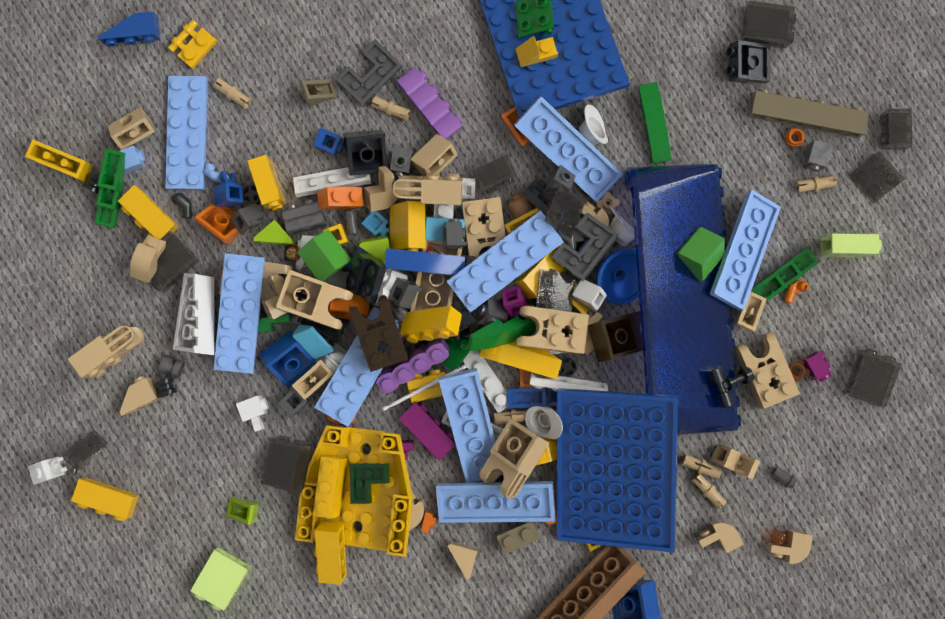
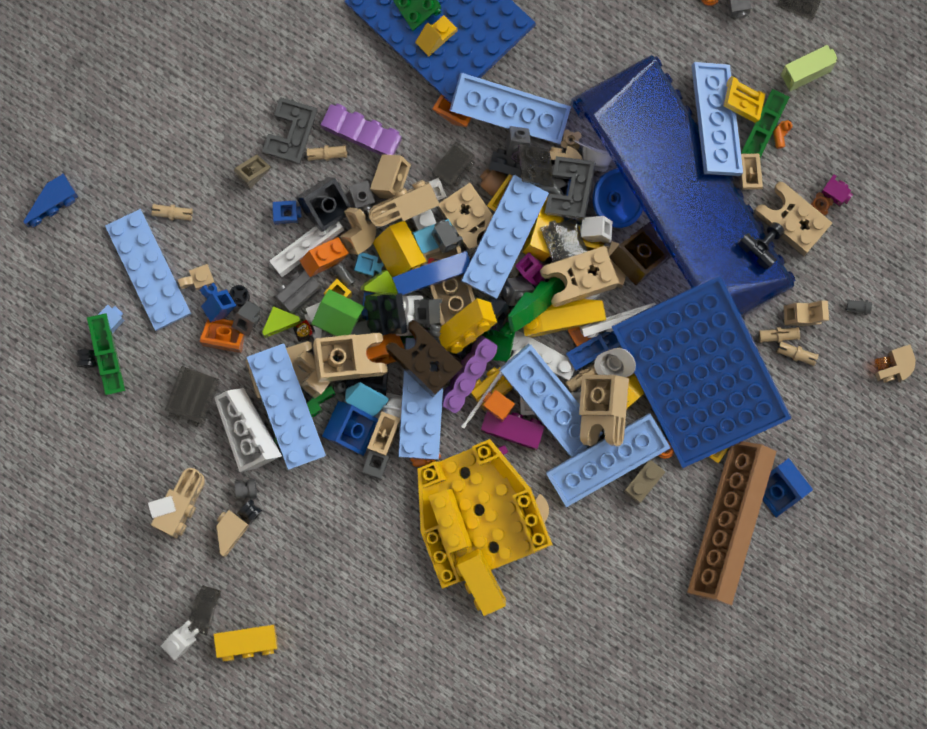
camera: 25 degrees left, 5 degrees down
(58, 160) = (44, 353): yellow brick -> none
(84, 348) = (161, 506): none -> white sticker
(131, 128) = (96, 290): tan brick -> none
(145, 258) = (175, 399): tan brick -> none
(147, 213) = (151, 361): yellow brick -> none
(185, 203) = (179, 334): pearl dark grey arm -> none
(197, 46) = (117, 188): yellow plate -> none
(209, 172) = (188, 294): light blue arm -> none
(220, 579) = (391, 661): yellowish green brick -> none
(226, 162) = (199, 277): none -> tan plate
(242, 510) = (378, 588): lime slope -> none
(252, 410) = (341, 491): white brick -> none
(267, 183) = (249, 276): yellow brick -> none
(287, 464) = (399, 522): clear smoke brick -> none
(362, 477) = (476, 496): dark green plate -> none
(423, 406) = (498, 405): none -> orange brick
(428, 521) = (556, 511): orange plate -> none
(464, 557) = (605, 526): tan slope -> none
(569, 368) = (611, 302): black wheel -> none
(593, 126) = (521, 77): white piece -> none
(654, 122) = (575, 45): green slope -> none
(702, 252) = (678, 139): bright green slope -> none
(723, 532) = (832, 384): tan brick -> none
(776, 250) = (741, 103): none -> yellow plate
(816, 184) = (751, 28): tan pin -> none
(872, 377) = (892, 176): clear smoke brick -> none

